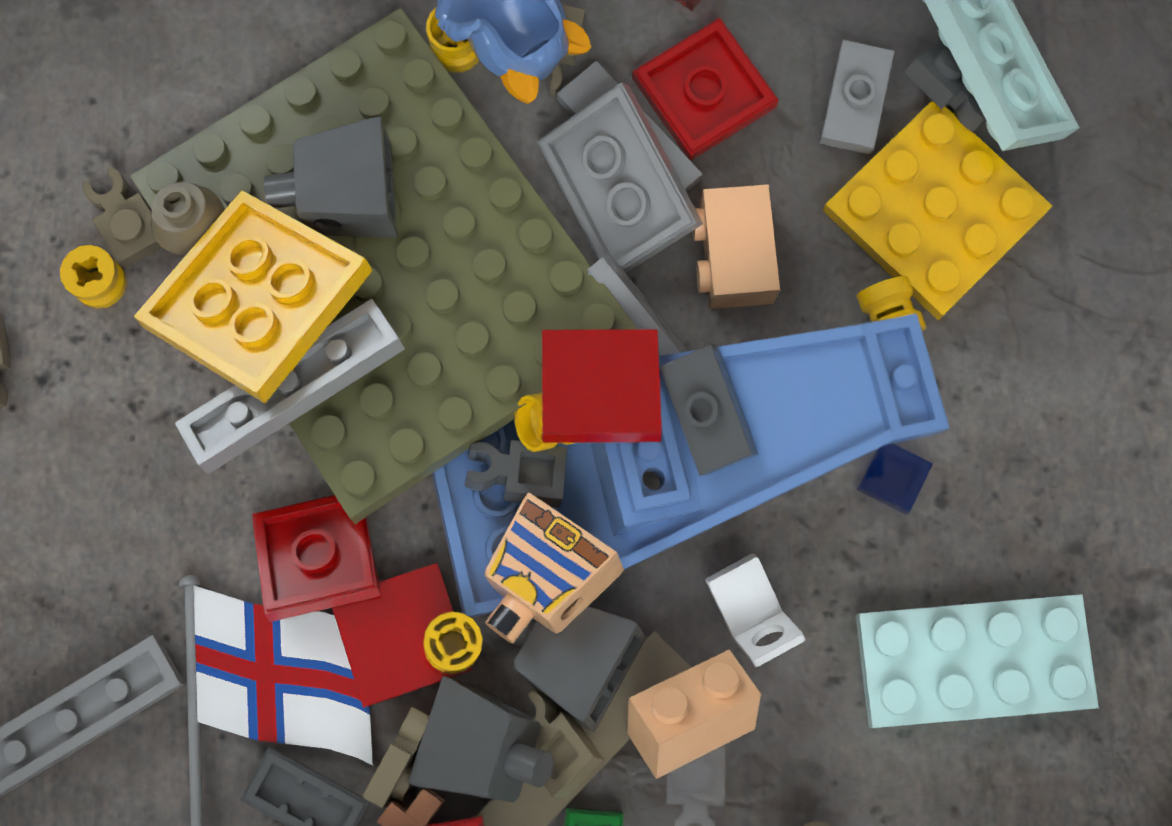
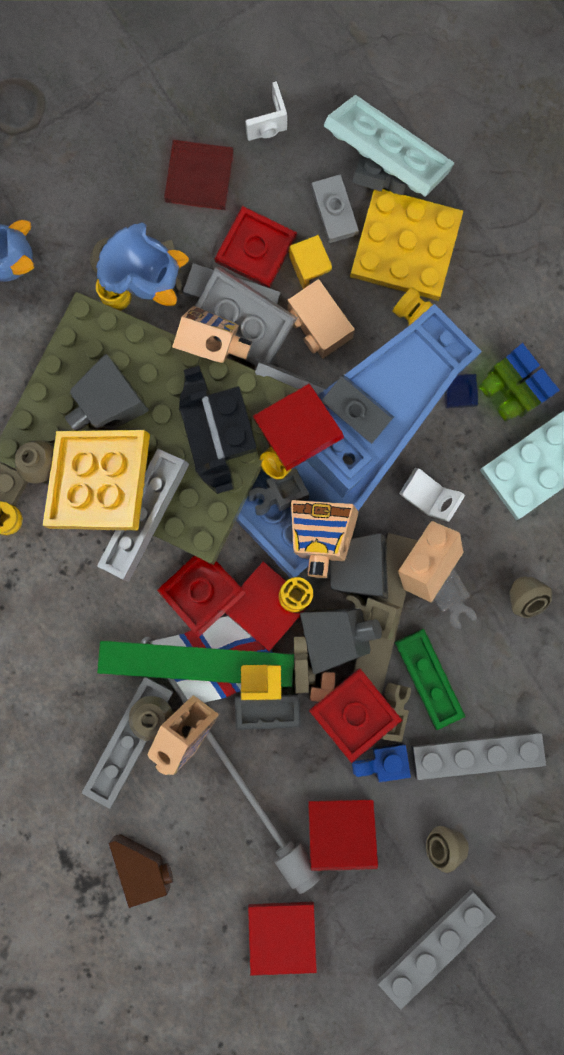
camera: 30 degrees left, 5 degrees up
(126, 764) = (170, 748): none -> light nougat torso
(133, 712) = (150, 705): none -> dark tan cone
(242, 661) = (186, 662): none -> green tile
(318, 748) = (260, 682): none -> yellow panel
(476, 319) = (215, 429): none -> black plate
(552, 177) = (198, 333): none -> light nougat torso
(773, 149) = (309, 259): none -> yellow panel
(984, 492) = (510, 372): none -> clear neon green hips

